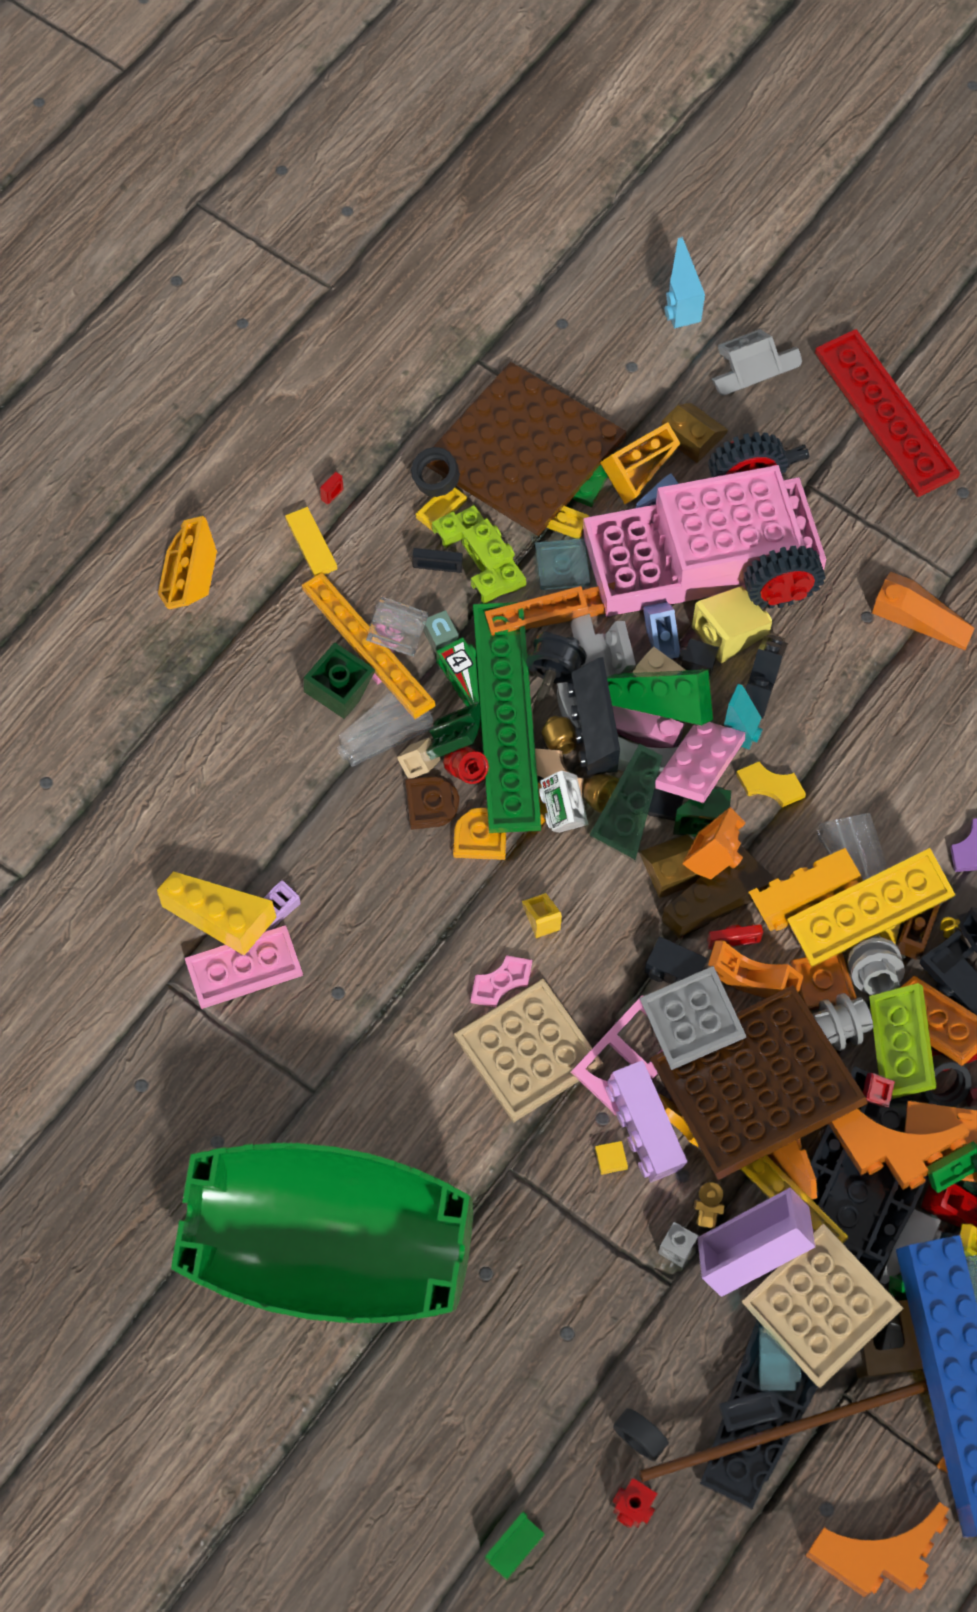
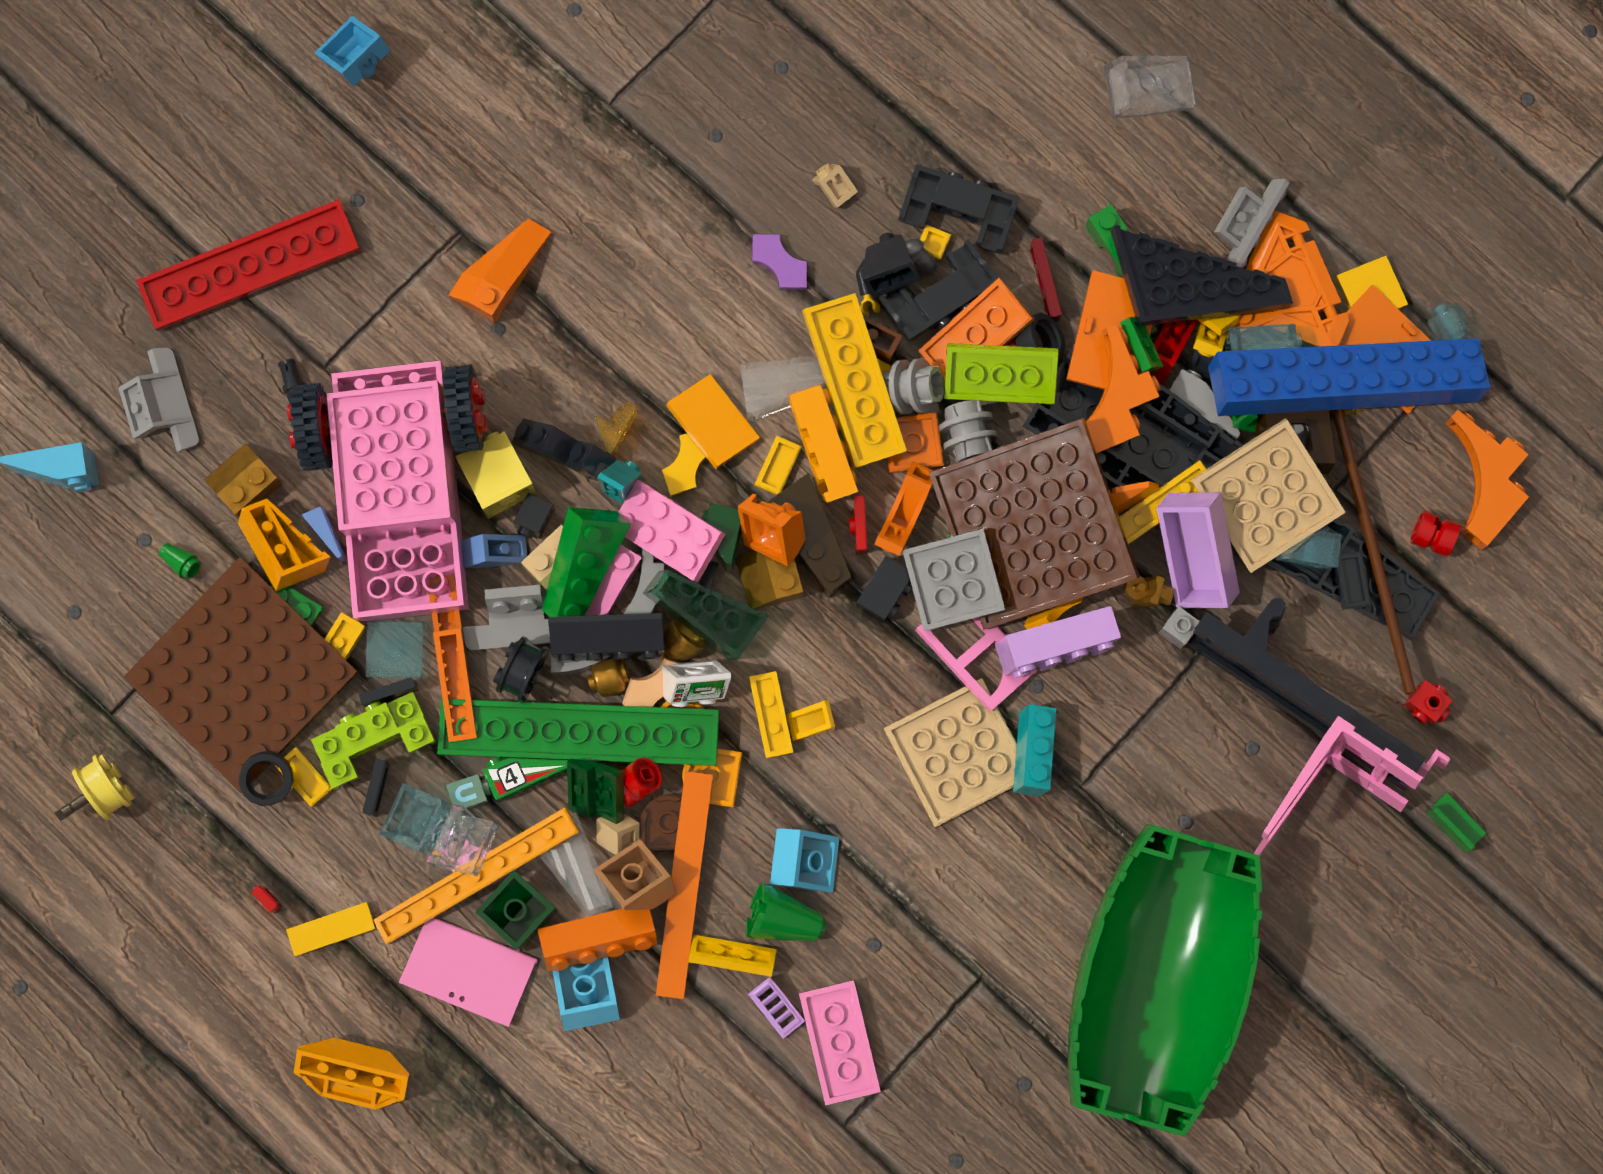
camera: 85 degrees left, 15 degrees up
(219, 911) = (782, 1060): yellow wedge -> none
(281, 743) = (586, 994): none -> medium azure slope
(288, 652) = (478, 971): none -> bright pink container
(316, 865) = (732, 955): none -> yellow plate
(322, 747) = (596, 937): none -> orange brick
(354, 902) = (782, 917): none -> green cone
(376, 770) = (636, 878): none -> medium nougat slope
(377, 818) = (686, 881): none -> orange tile
(409, 919) = (804, 860): none -> medium azure slope
(411, 586) = (416, 819): none -> clear light blue brick
(412, 350) = (100, 788): none -> light yellow wheel
(491, 987) = (887, 784): bright pink tile -> none
(524, 561) = (388, 692): none -> black tile
(537, 1112) = (1034, 750): none -> teal brick
(543, 877) = (771, 715): none -> yellow plate
(585, 1393) = (1339, 724): none -> black piece
(611, 1157) = (1081, 682): yellow tile -> none
(615, 393) = (180, 561): none -> green cone
(640, 1434) = (1366, 687): black tyre -> none
(779, 861) = (778, 466): none -> yellow tile
(785, 718) = (614, 434): none -> clear yellow slope
(812, 799) = (712, 421): none -> light orange tile
(813, 1498) = (1435, 534): none -> red wheel
(878, 1090) = (1051, 406): red tile -> none

